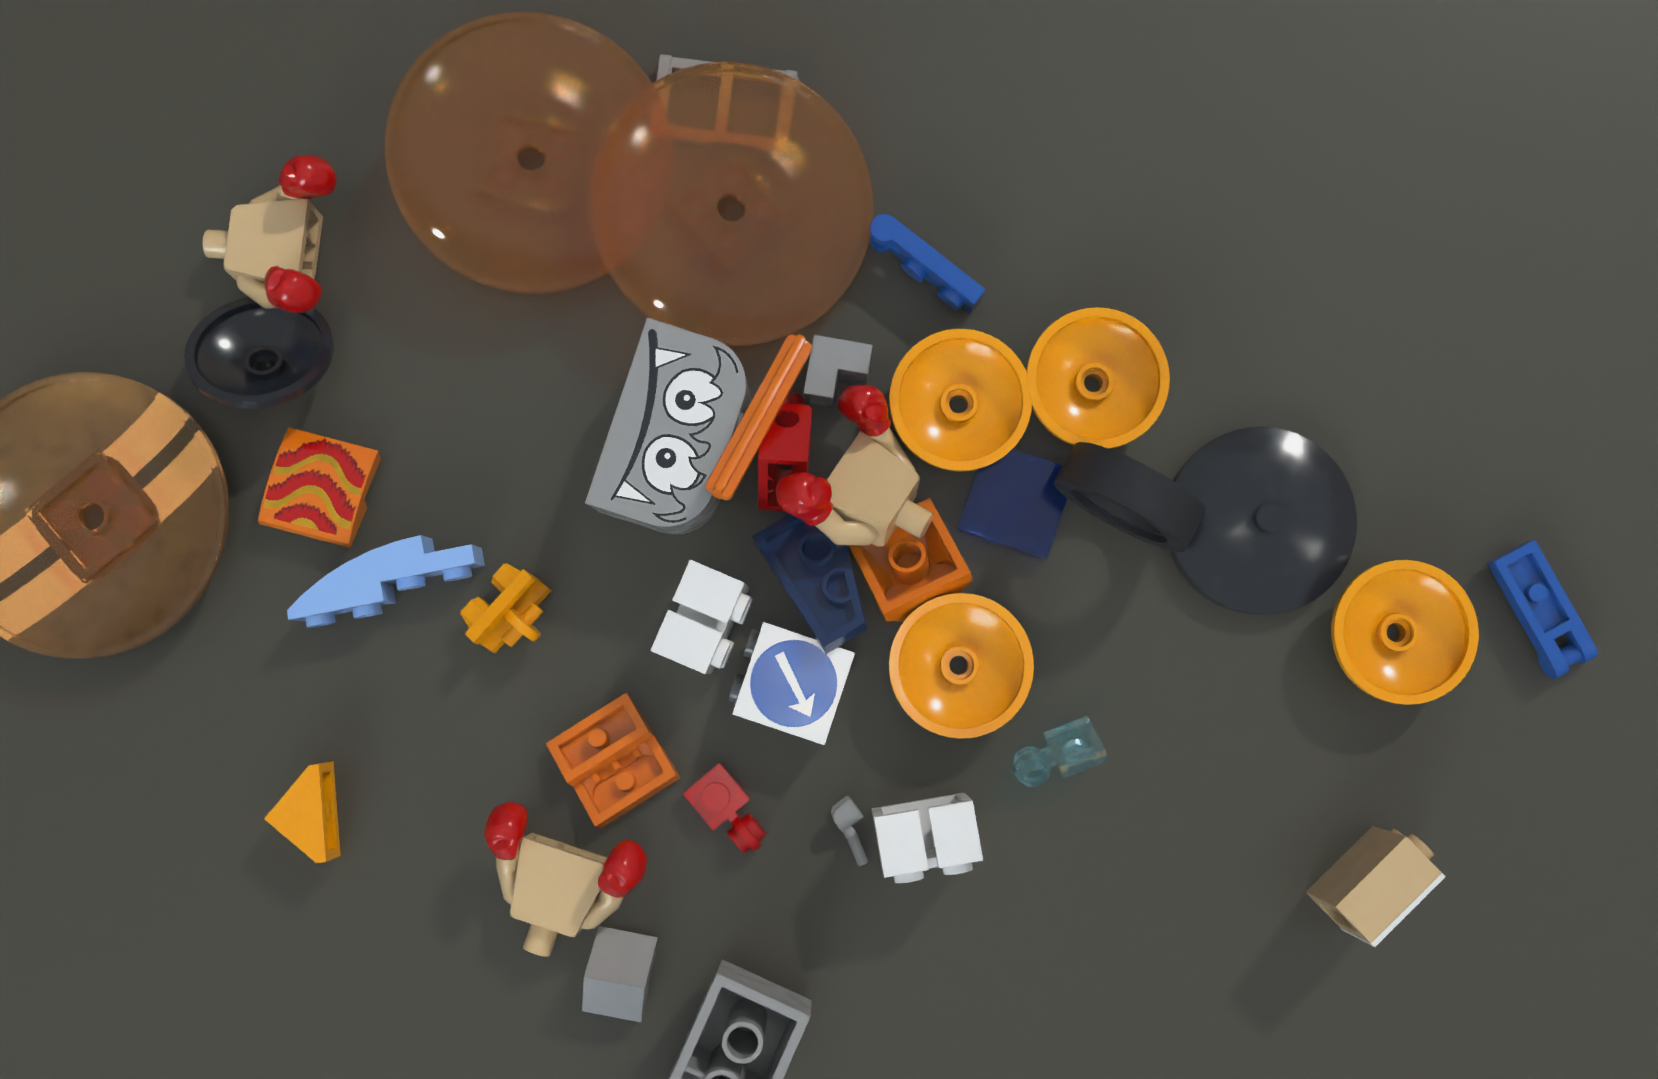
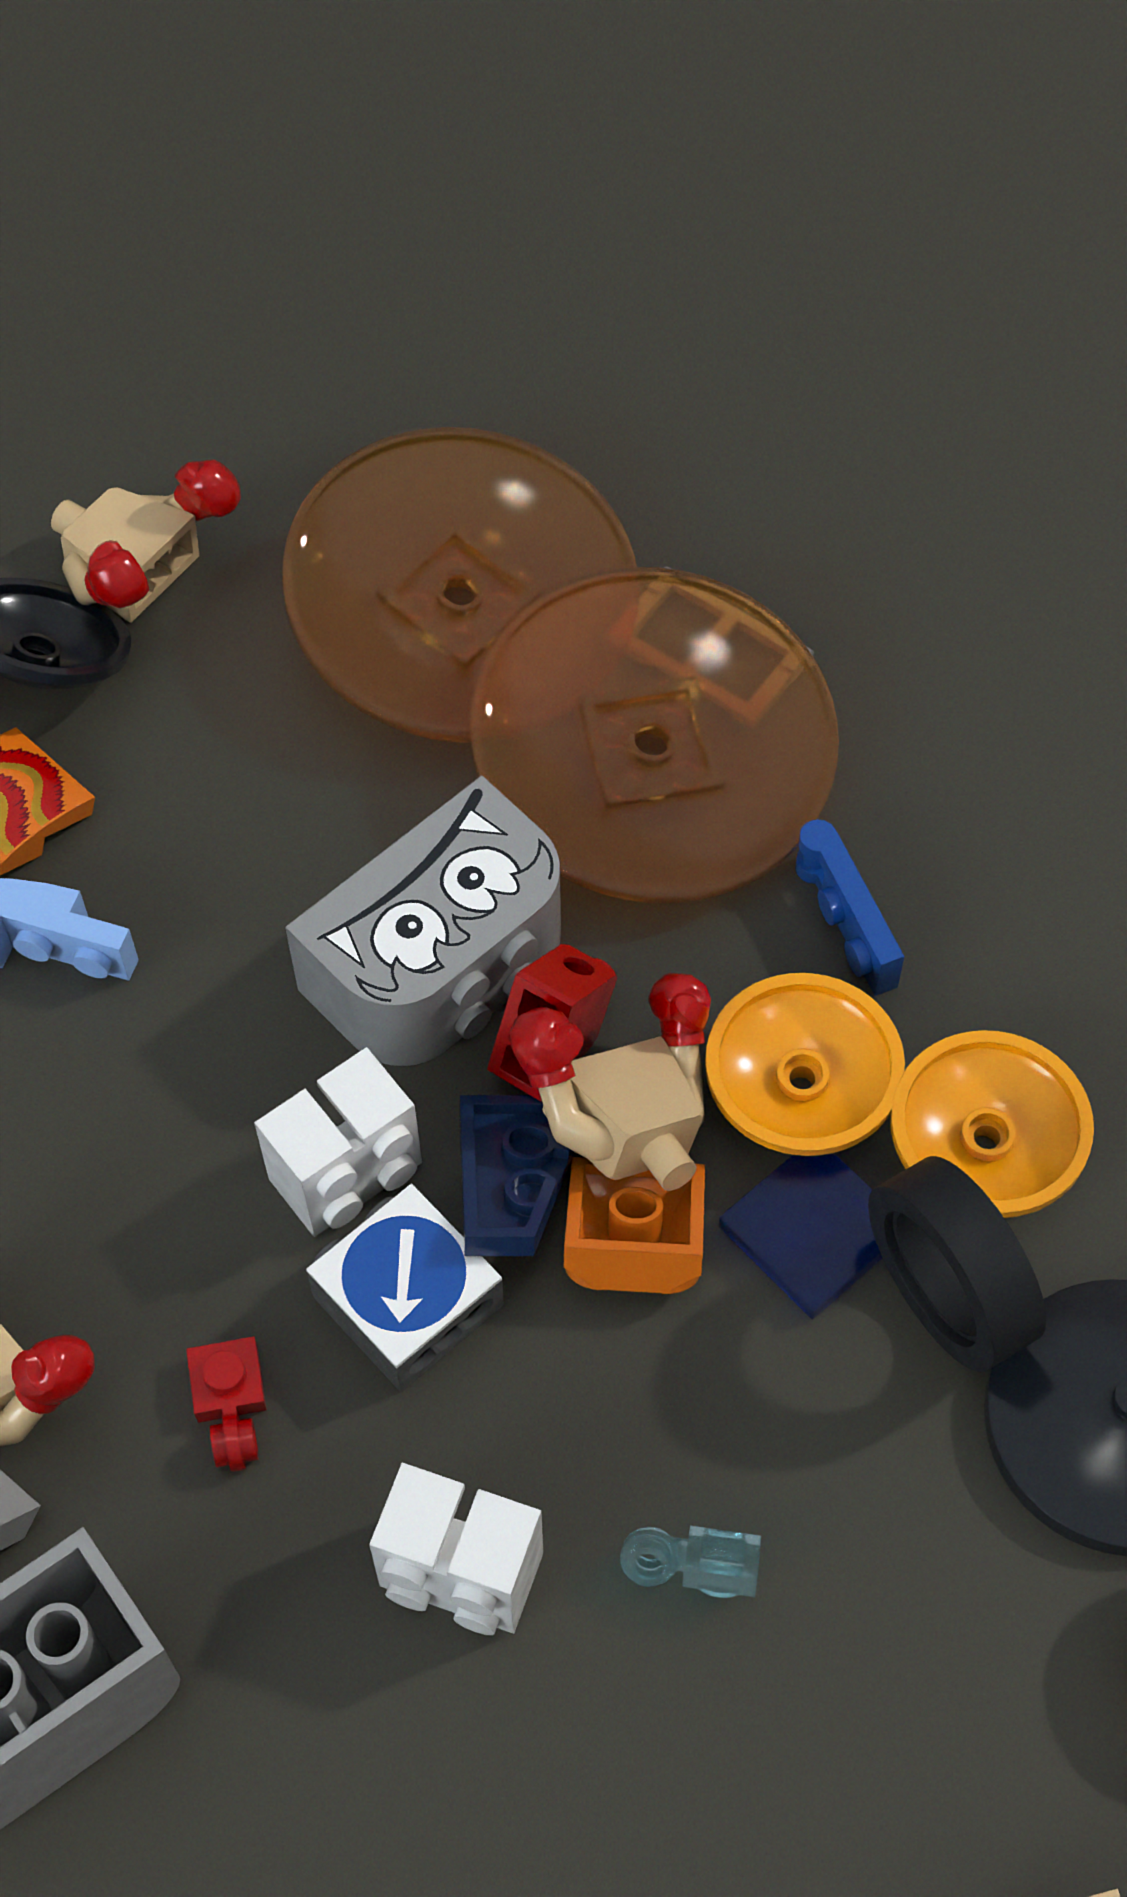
camera: 30 degrees right, 25 degrees down
(510, 613) = (120, 1030): light orange hips -> none
(613, 761) = (129, 1269): orange slope -> none
(758, 417) = (543, 938): orange axle -> none
(834, 361) = (666, 945): light grey piece -> none
(846, 814) = (370, 1490): light grey hand -> none
(996, 670) = (635, 1327): light orange dish -> none

